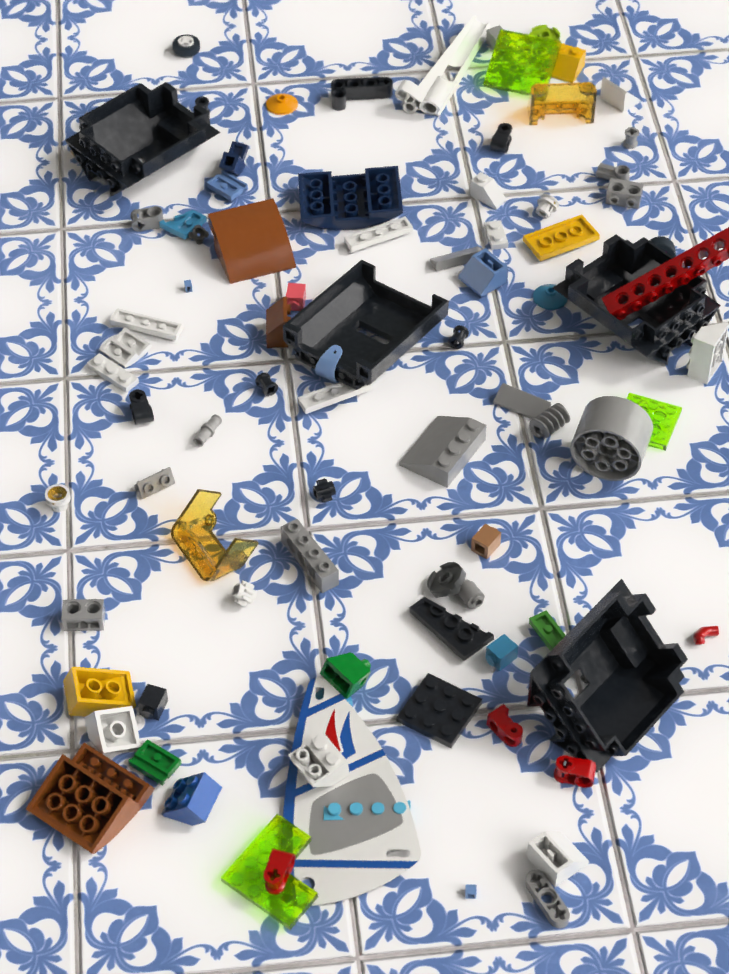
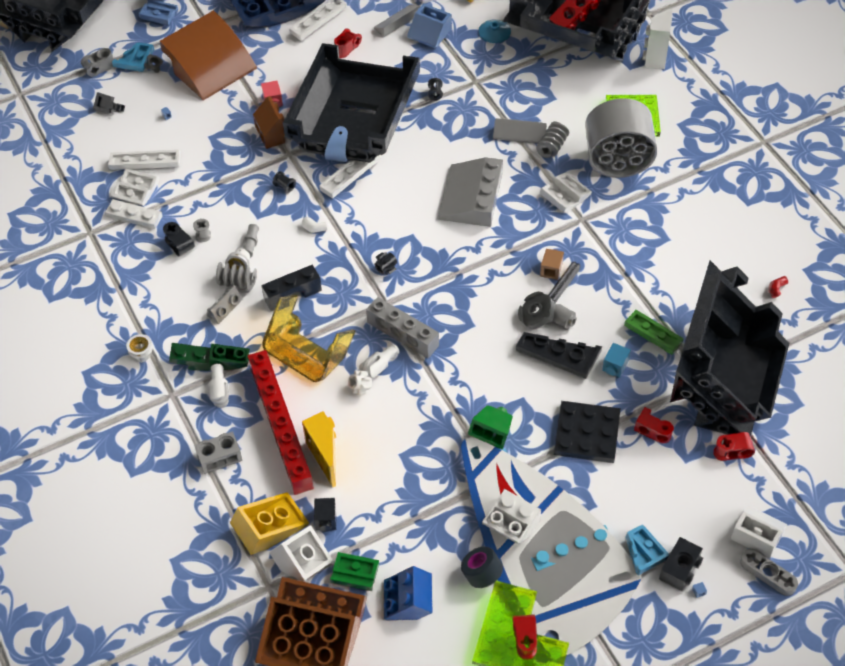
camera: 20 degrees left, 5 degrees up
(112, 556) = (218, 387): none -> white arm
(116, 527) = (203, 358): none -> dark green slope
(135, 261) = (106, 103): none -> black plate
(152, 606) = (280, 422): none -> red brick
(167, 403) = (202, 230): none -> light grey bush
(177, 459) = (235, 277): none -> light grey piece
(181, 637) = (321, 442): none -> yellow slope
(186, 446) = (238, 257): none -> white piece
(235, 481) = (303, 280): none -> black arch
(270, 797) = (481, 567): none -> black wheel
(271, 580) = (378, 361): none -> white arm
(273, 435) = (313, 227): none -> white arm
(393, 266) = (347, 42): none -> red piece
(435, 836) = (644, 549): none -> dark azure wing
(468, 850) = (686, 553): none -> black brick
(489, 563) = (564, 281): none -> axle
(538, 476) = (565, 192): none -> white slope

